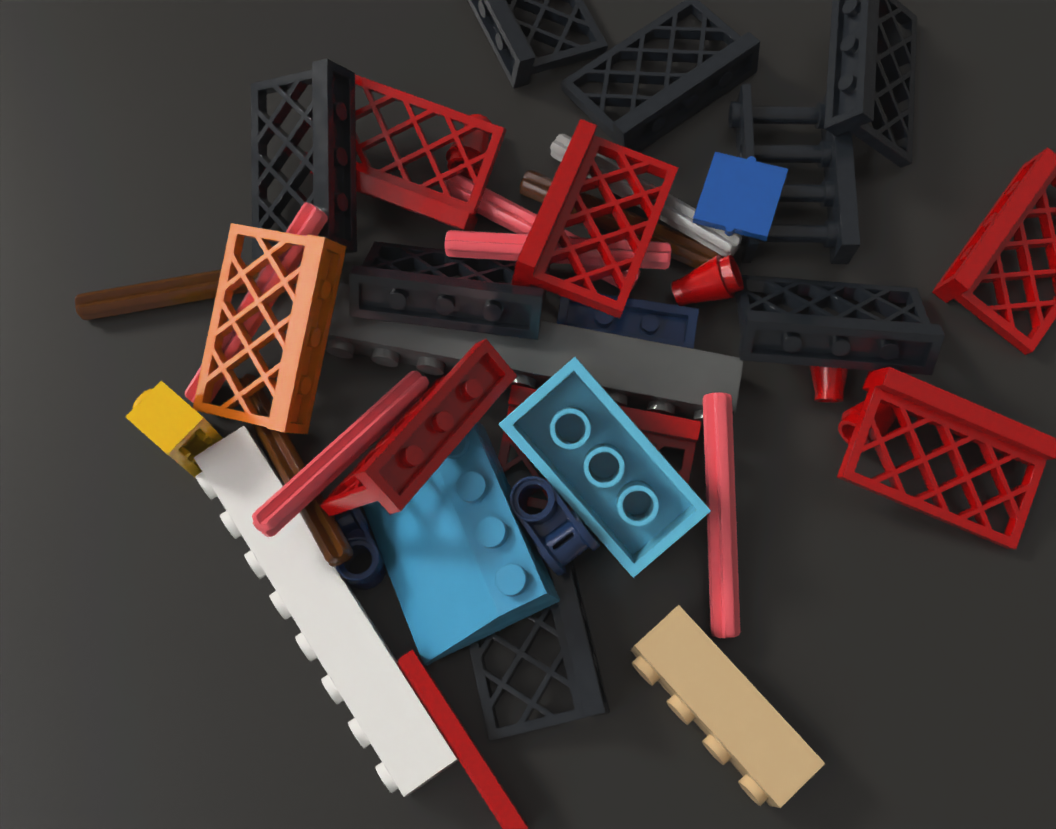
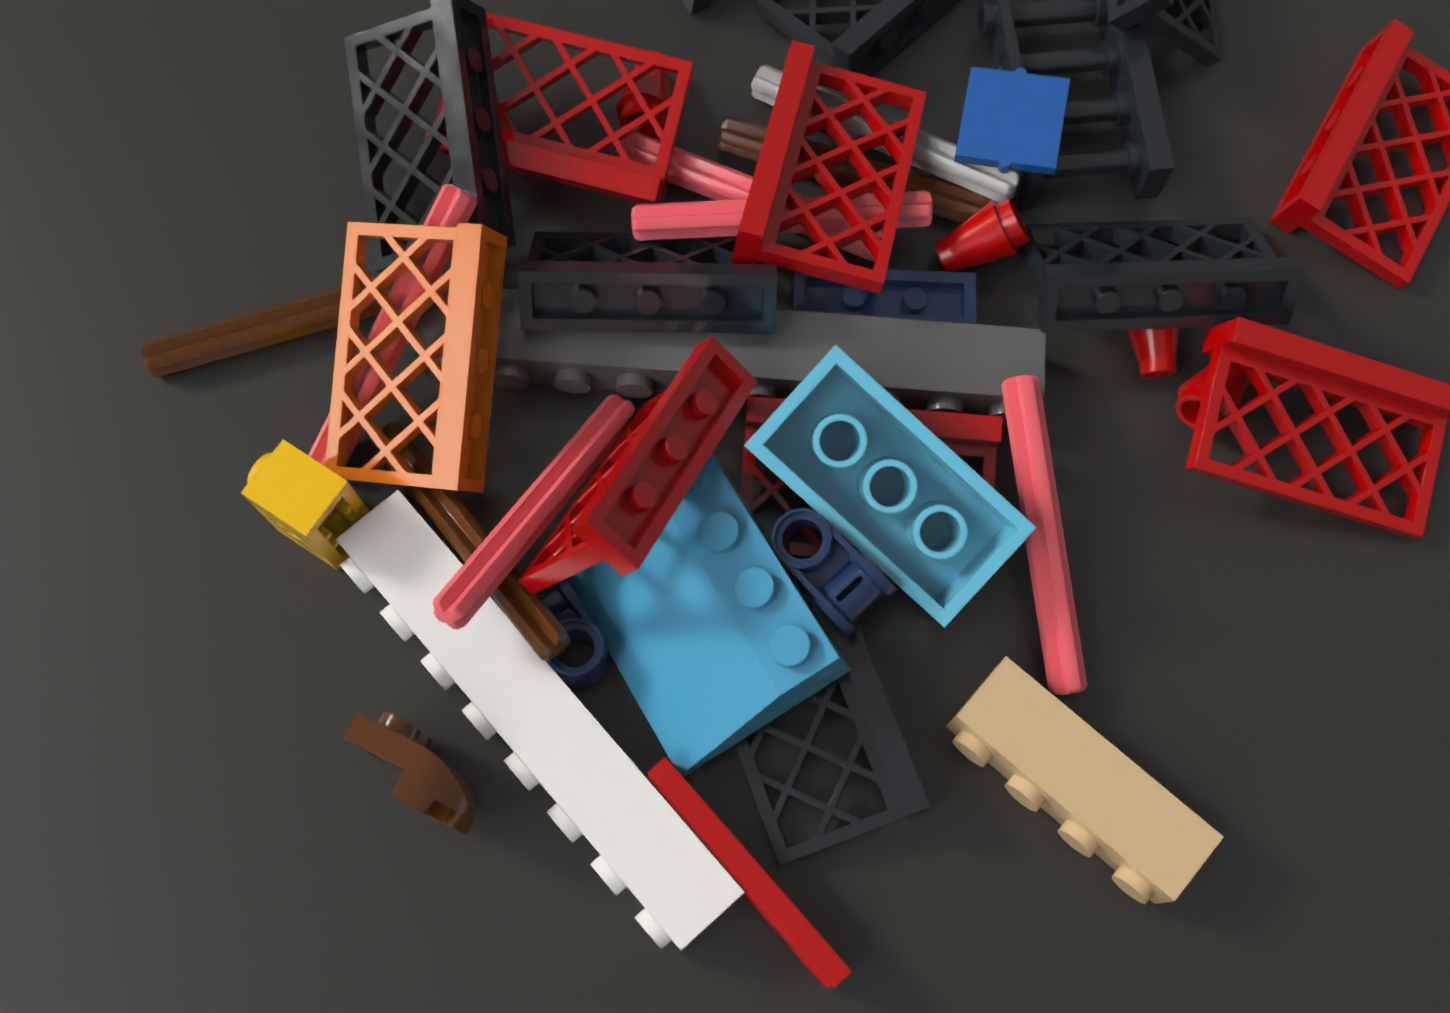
camera: 10 degrees left, 0 degrees up
(234, 643) = (427, 780): none -> reddish brown slope

